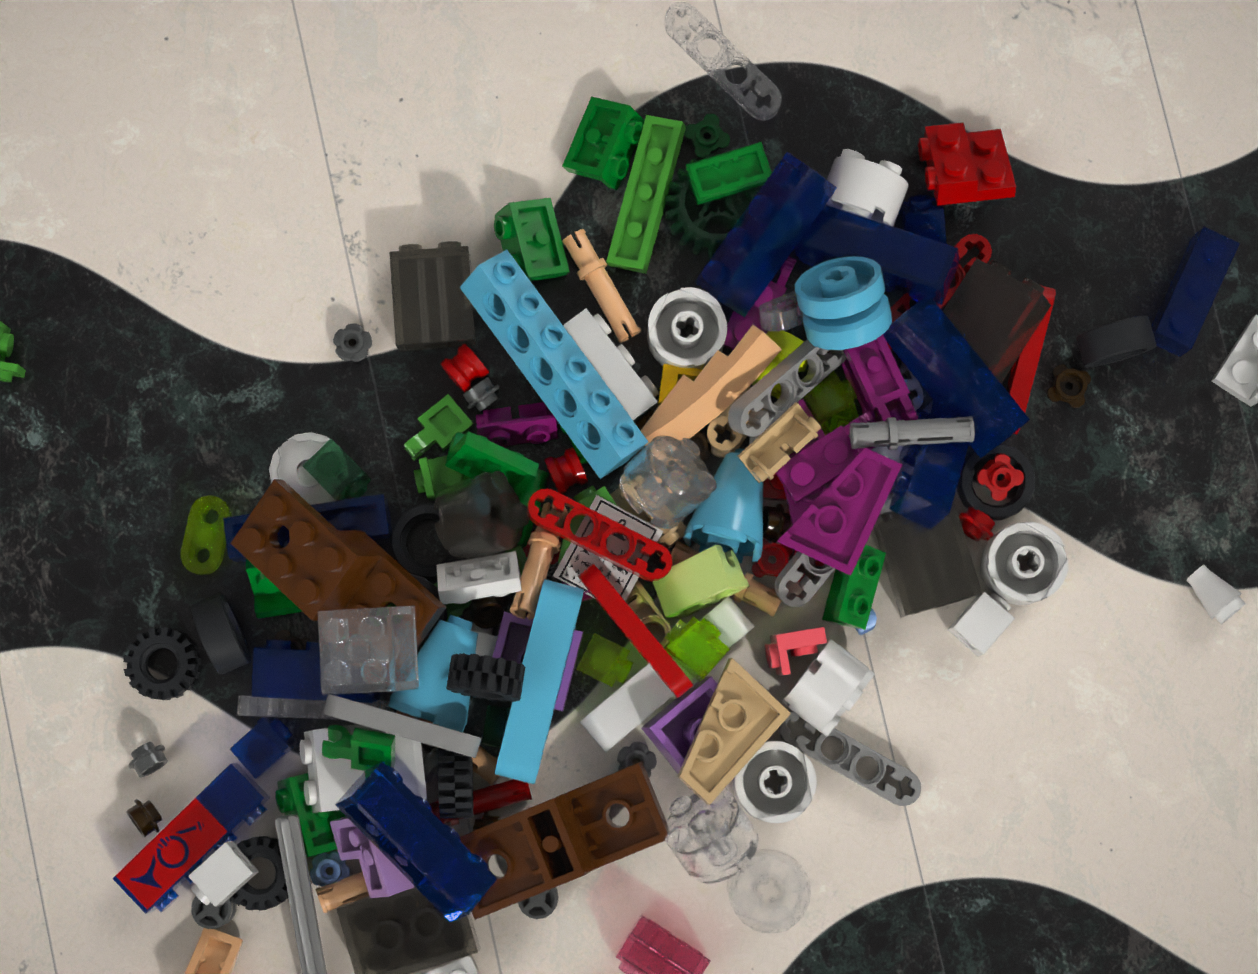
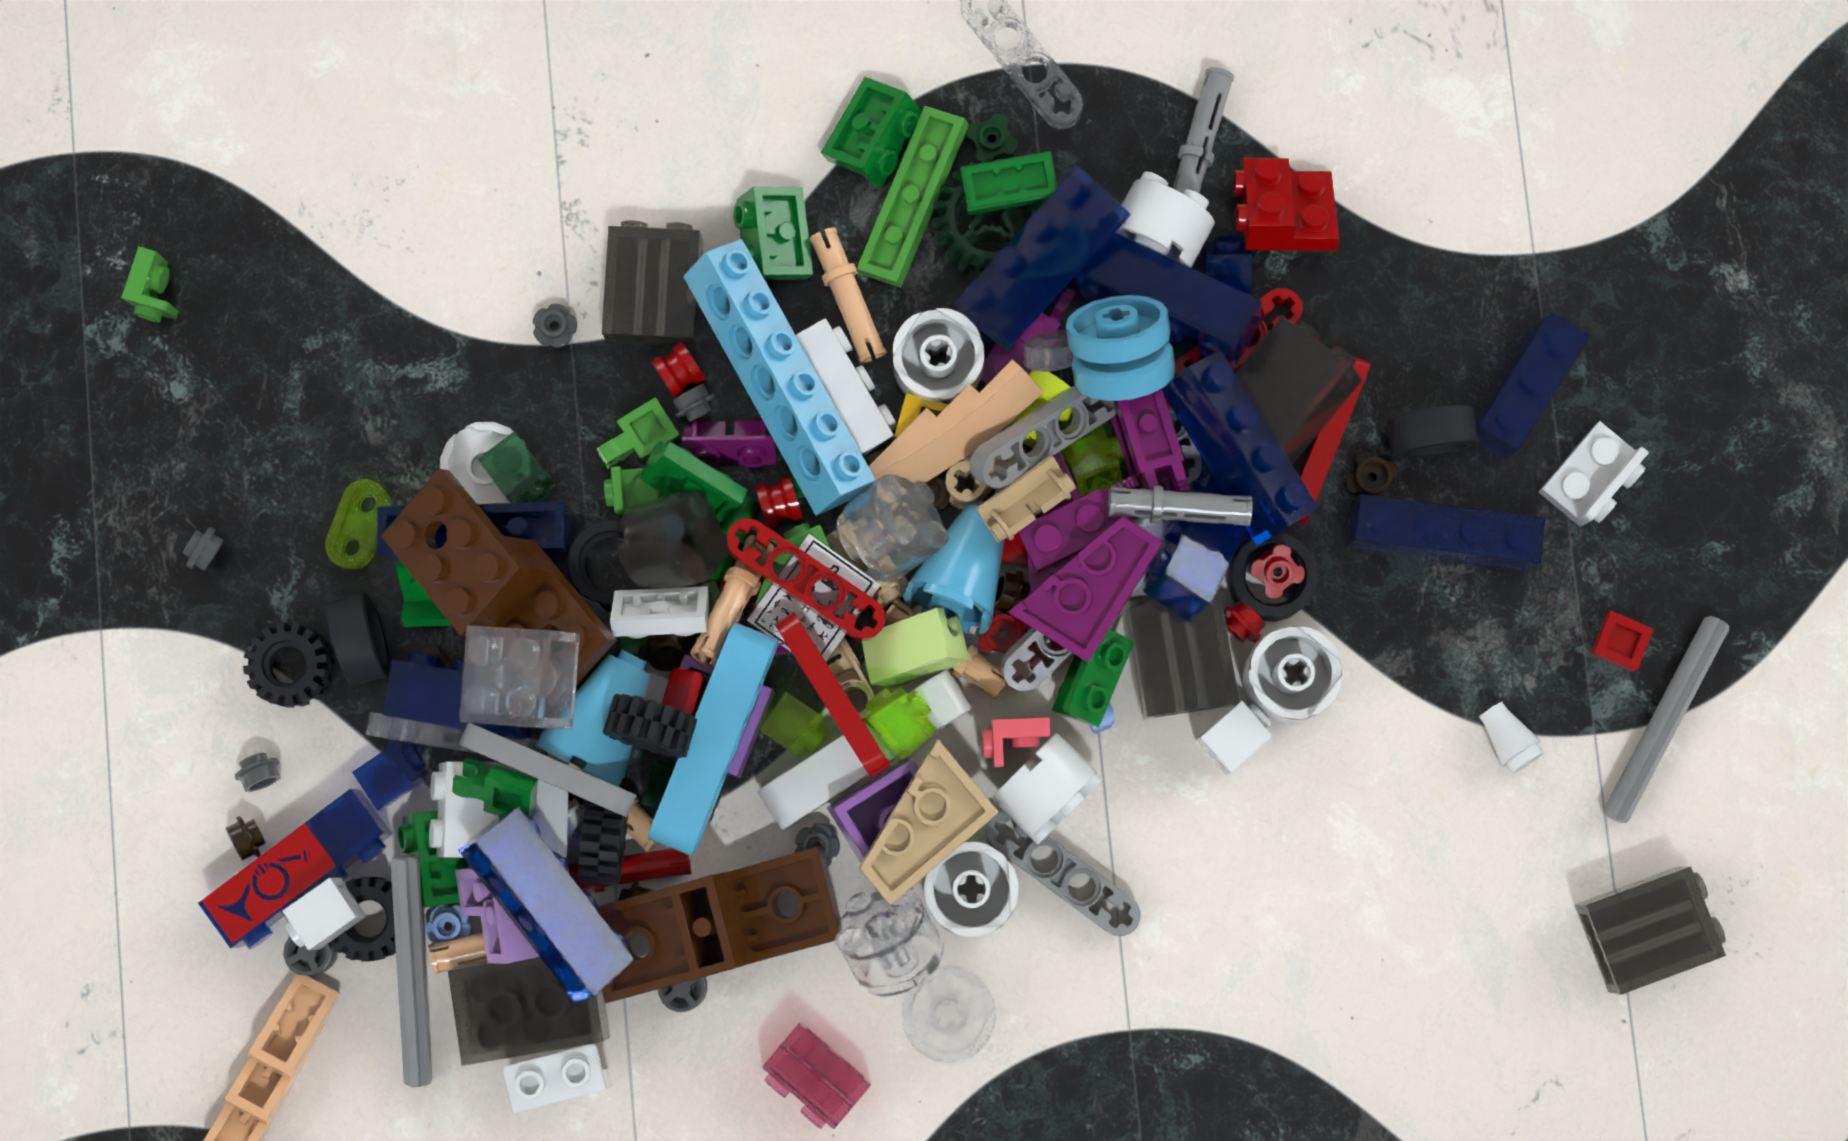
camera: 10 degrees right, 0 degrees up
(74, 573) = (202, 548): none -> dark grey plate
(508, 642) = (684, 690): none -> red slope
(884, 124) = (1197, 152): none -> light grey pin
(1138, 425) = (1446, 532): none -> clear blue brick

